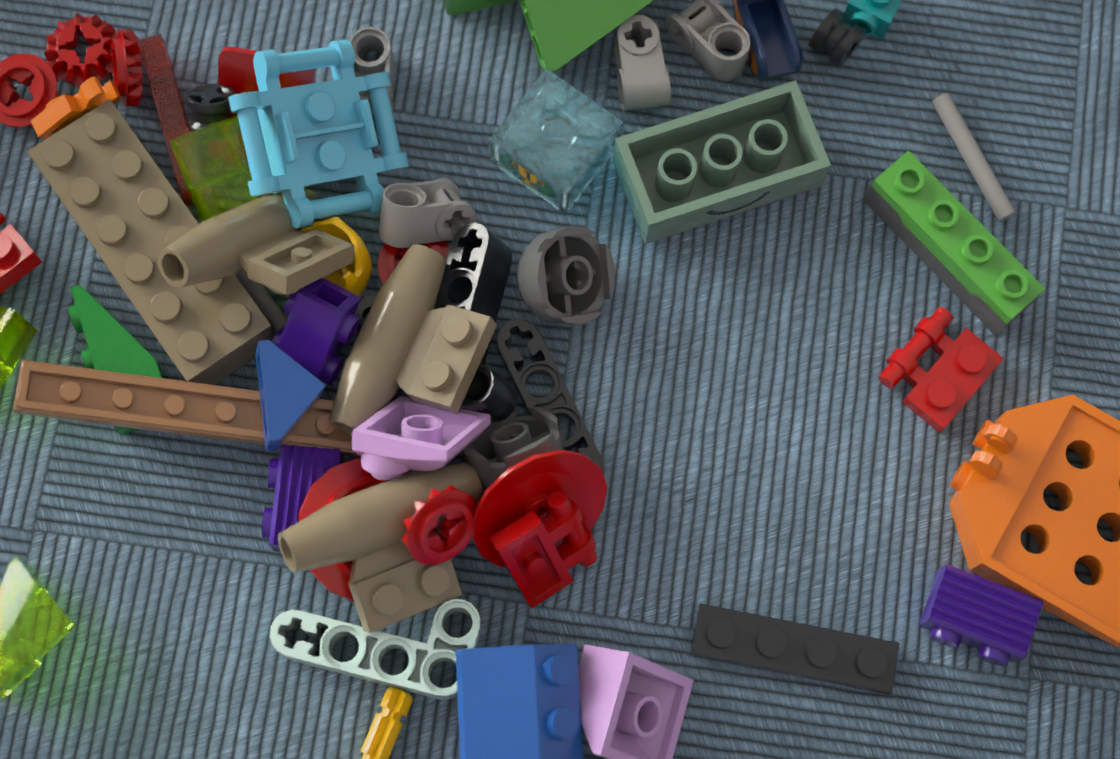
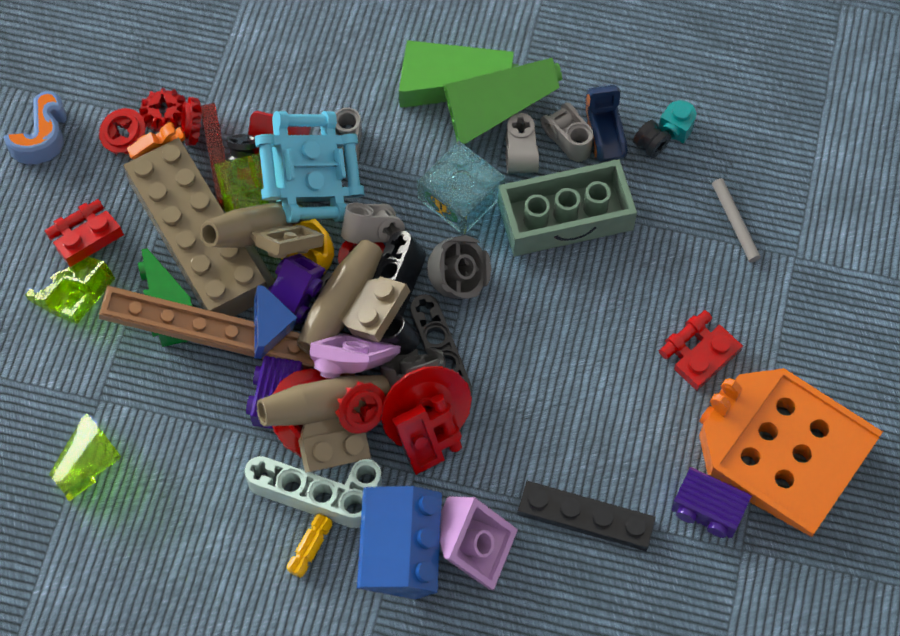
camera: 10 degrees right, 10 degrees down
(952, 243) = (715, 270): bright green piece -> none

